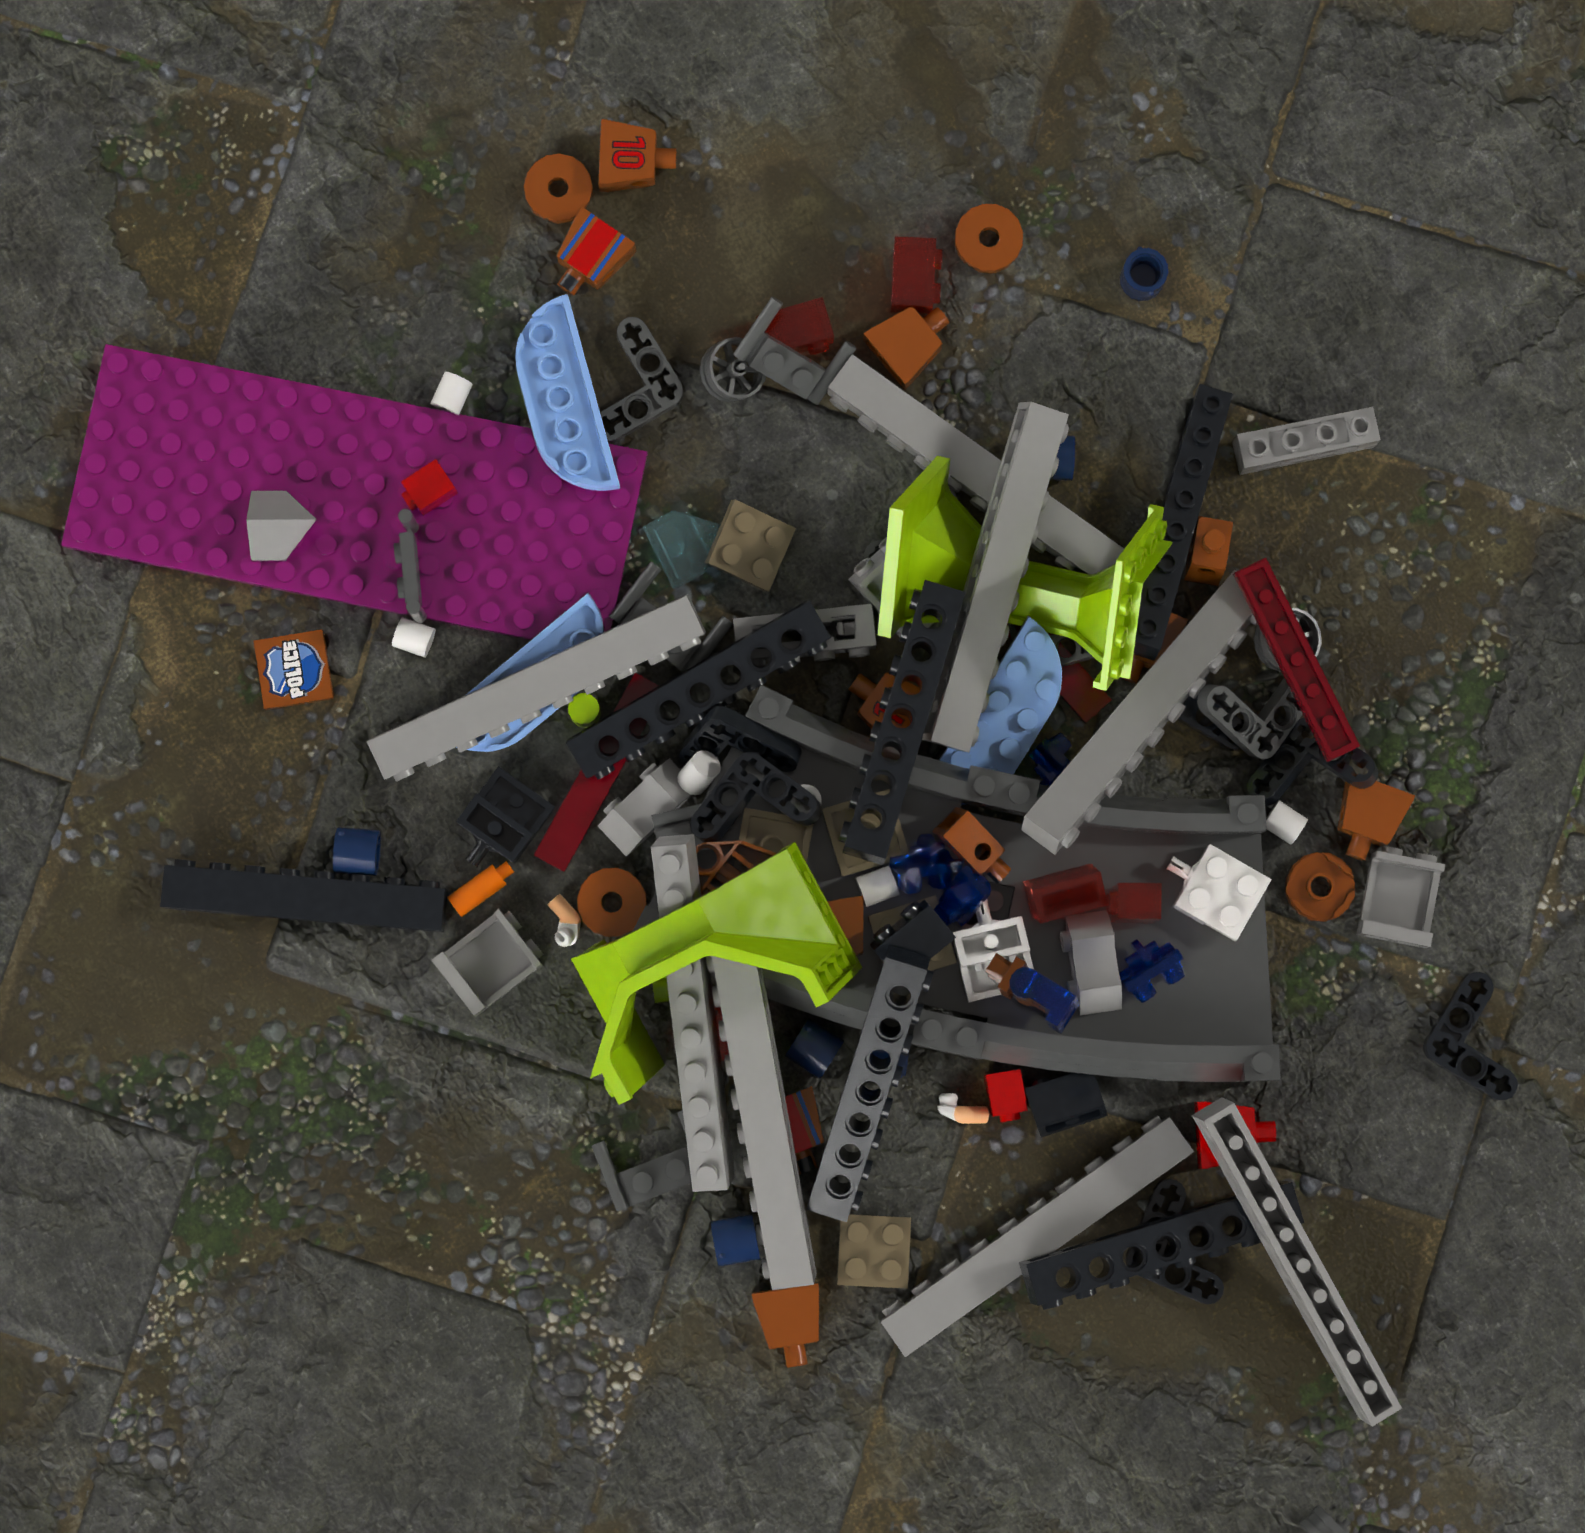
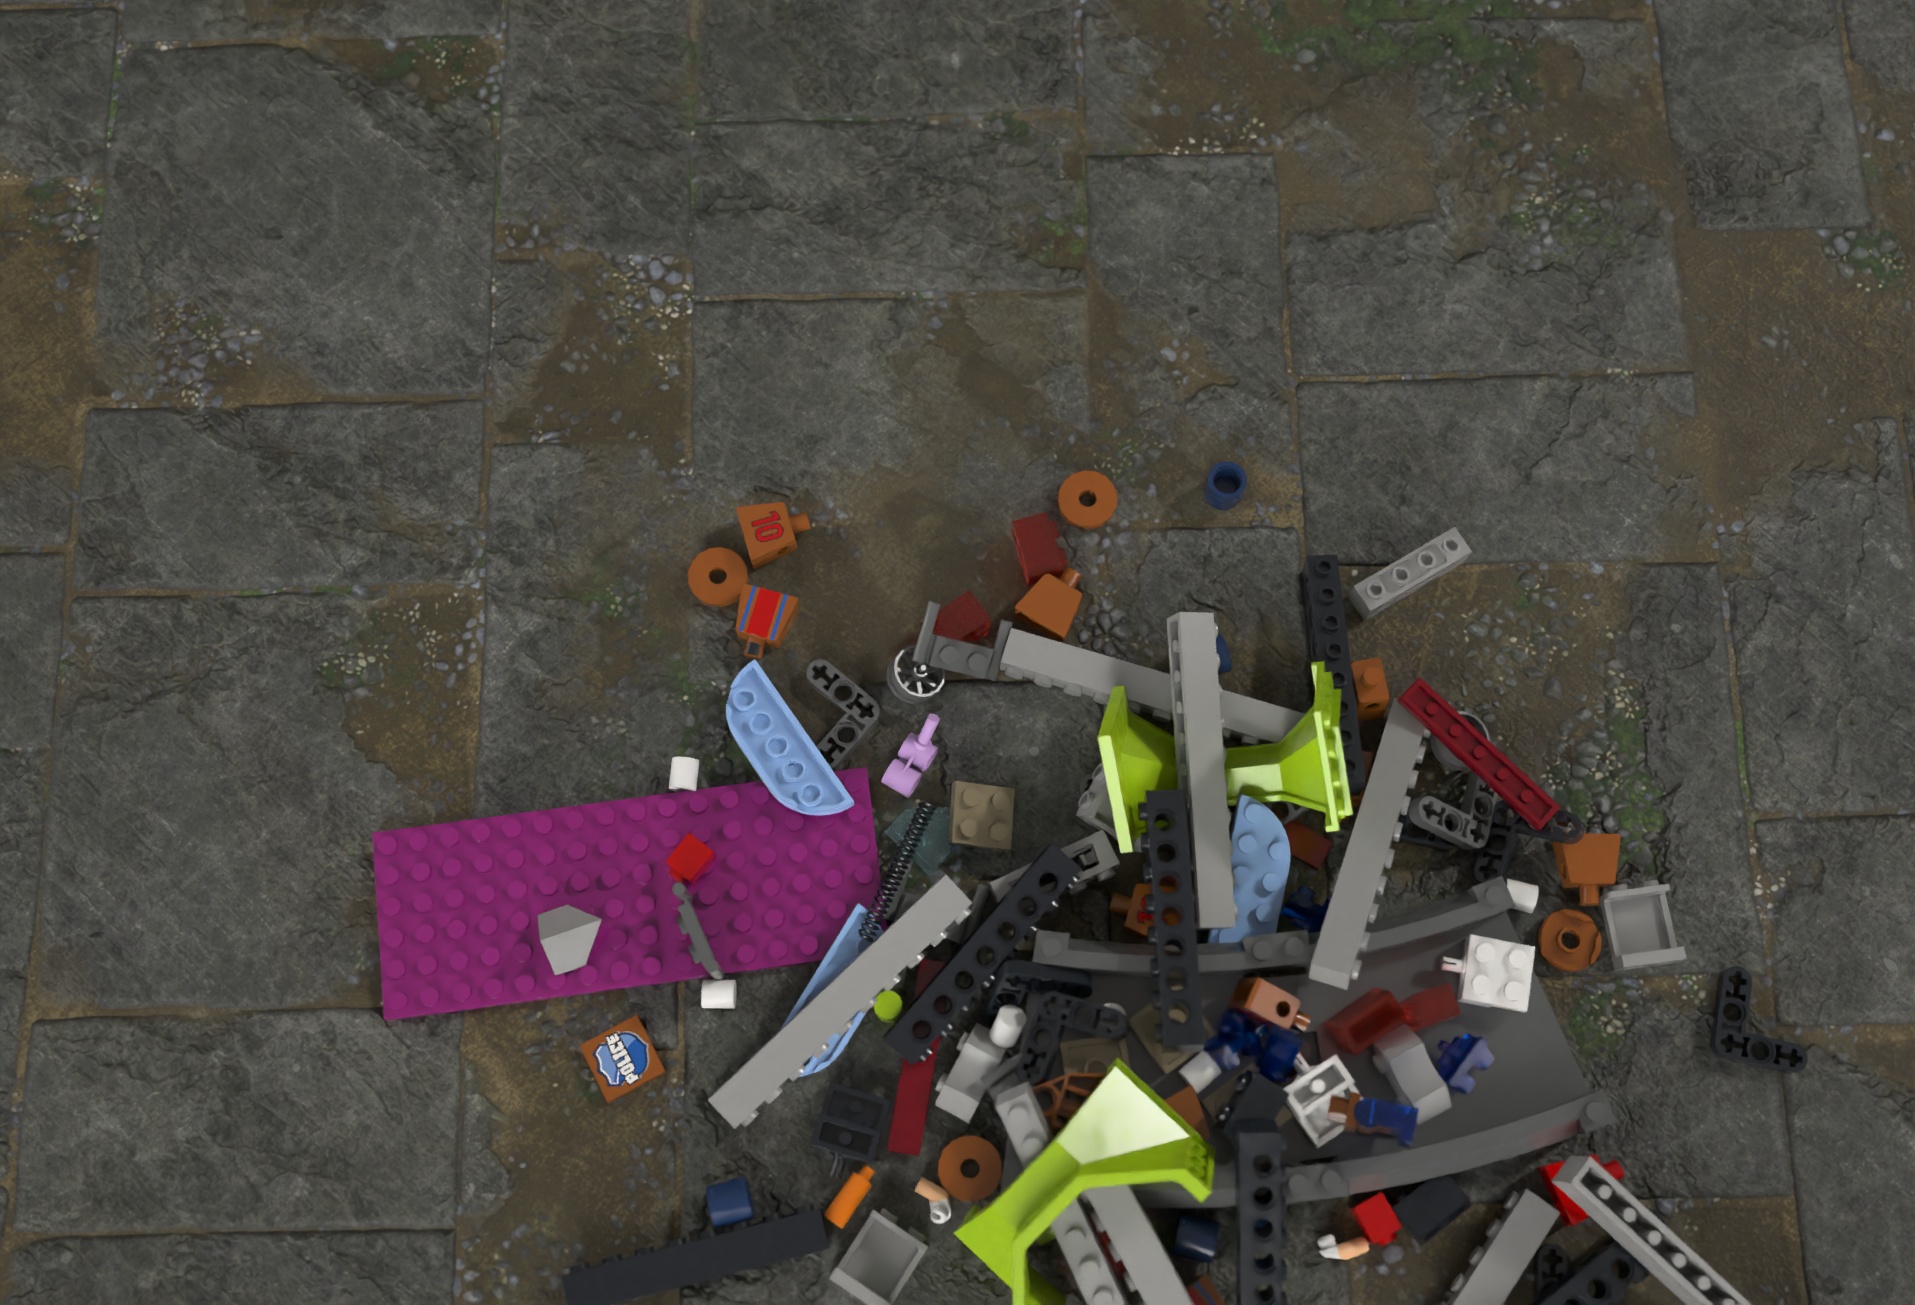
camera: 15 degrees left, 10 degrees down
(643, 575) = (898, 870): none -> black piece
(702, 459) = (915, 758): none -> lavender beam

